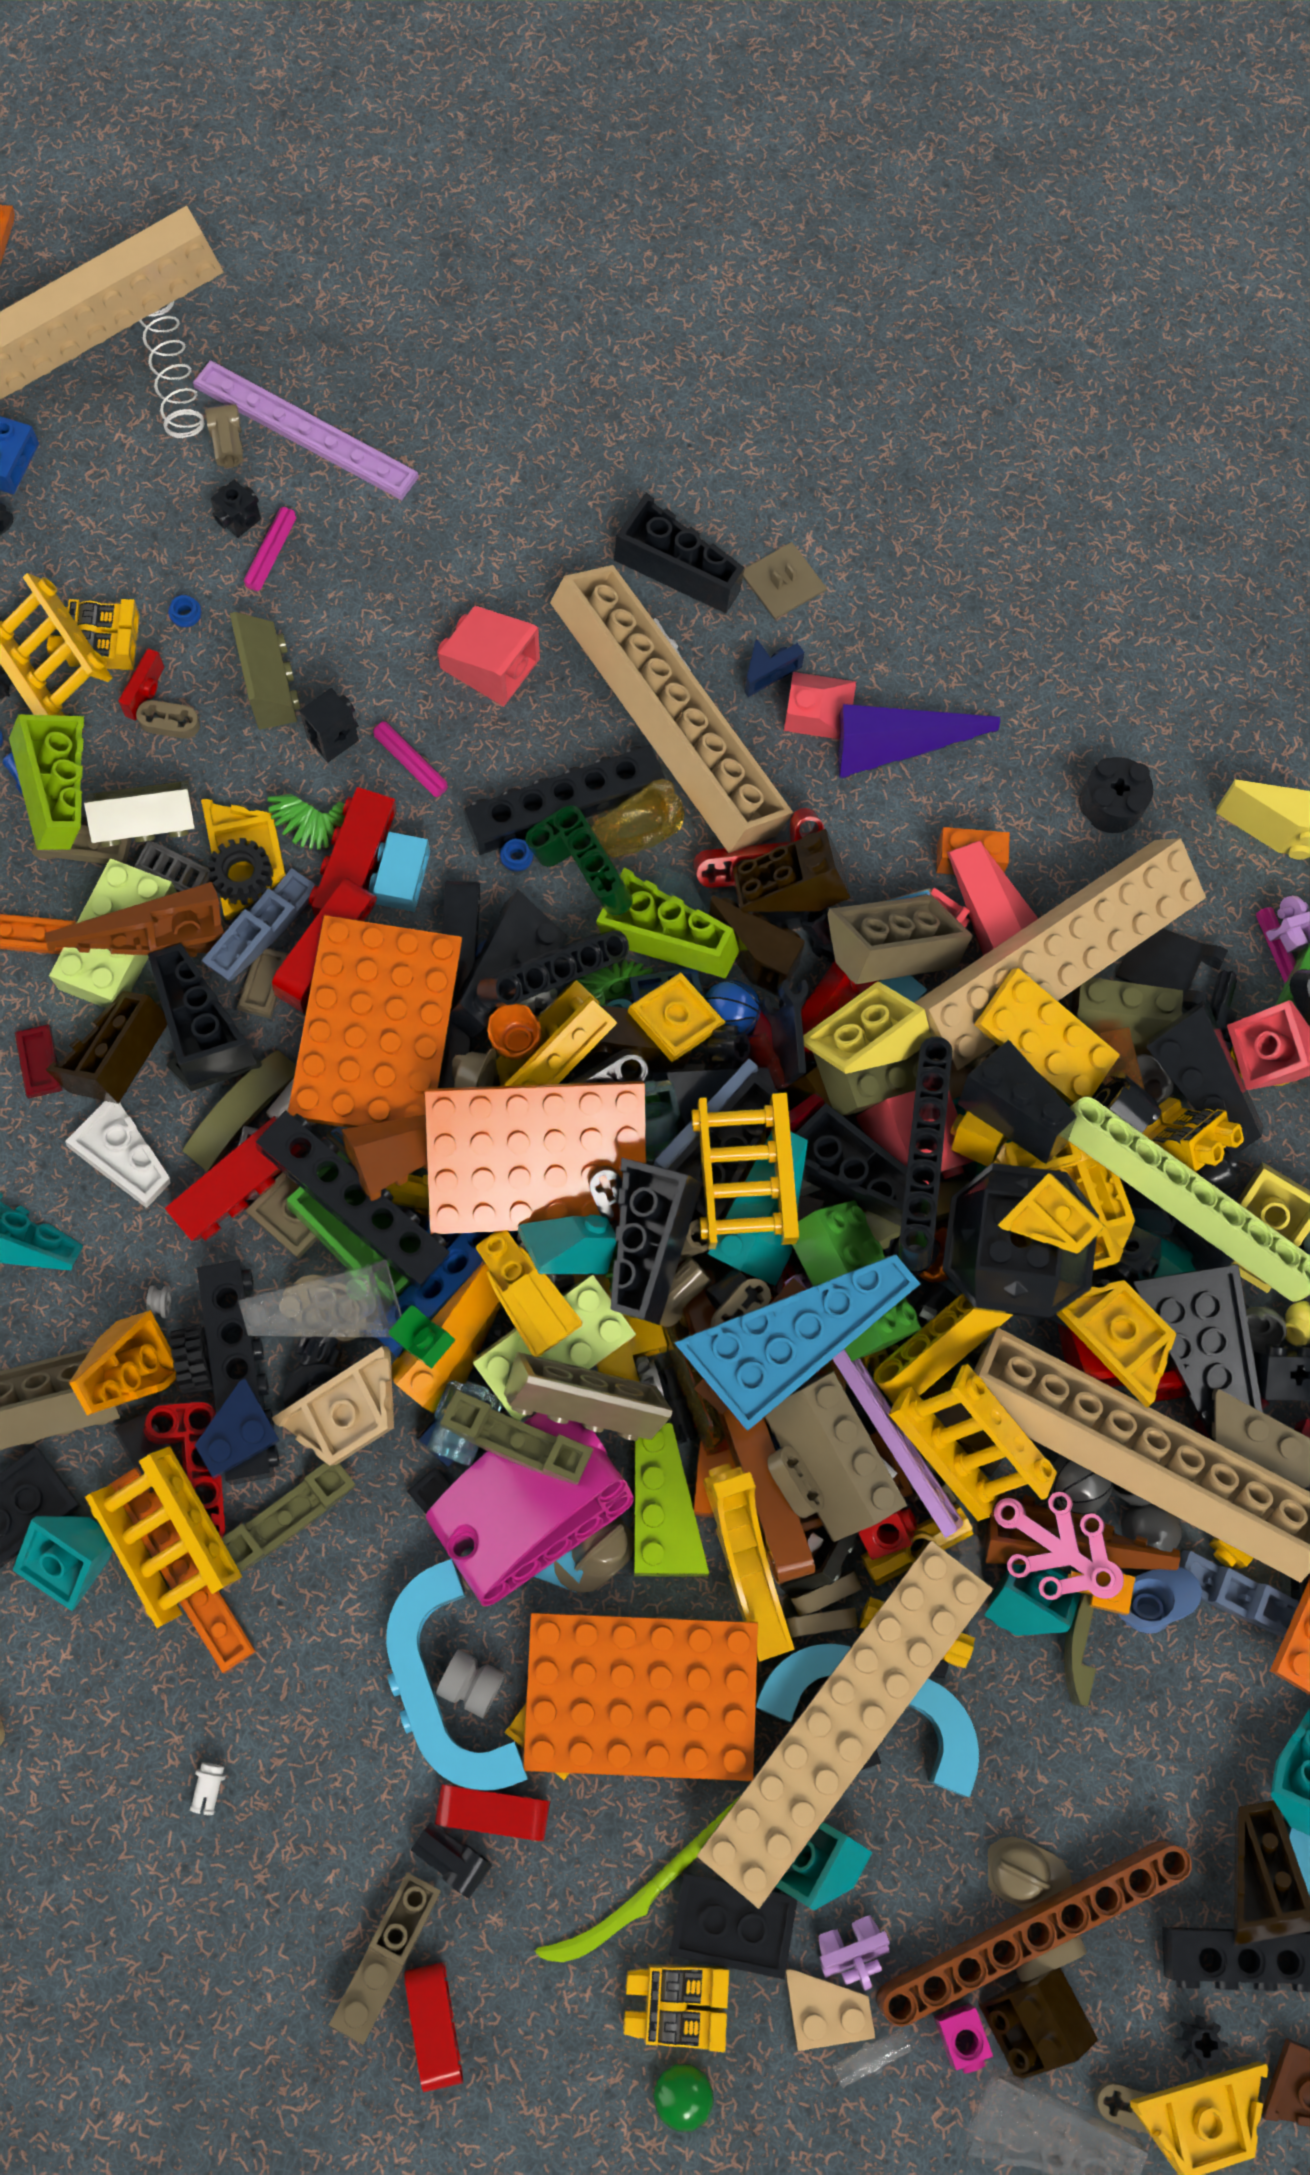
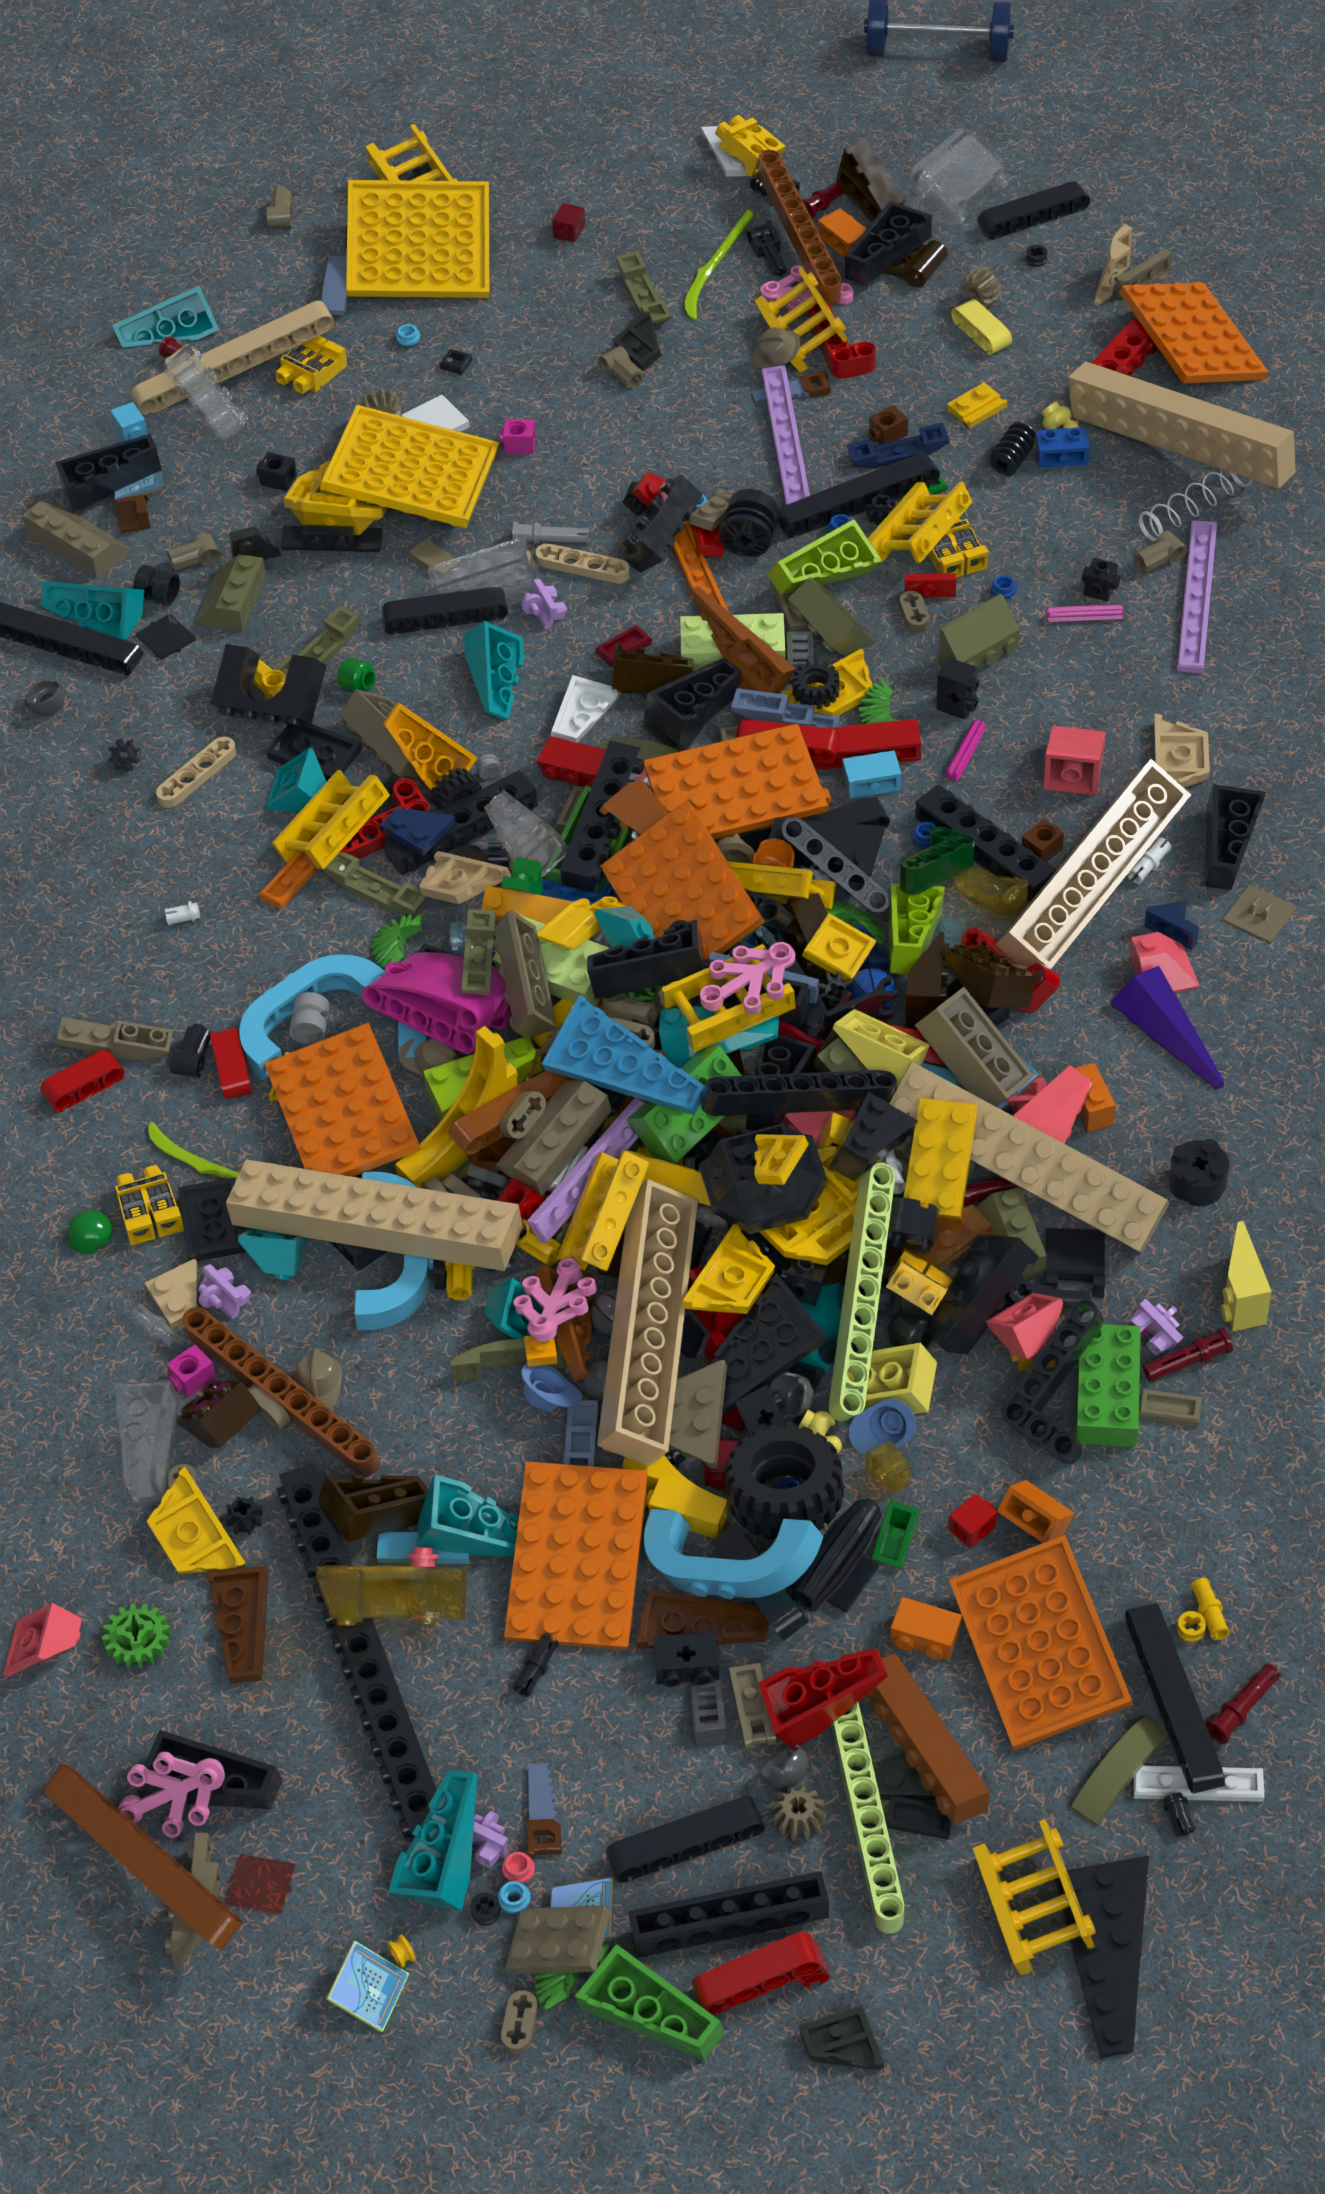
camera: 75 degrees right, 20 degrees down
(383, 1529) = (390, 940): none -> bright green hair
(528, 550) = (1181, 751): none -> tan wing
(596, 727) = (1044, 840): none -> reddish brown brick
(749, 1130) = (749, 974): none -> bright pink plant

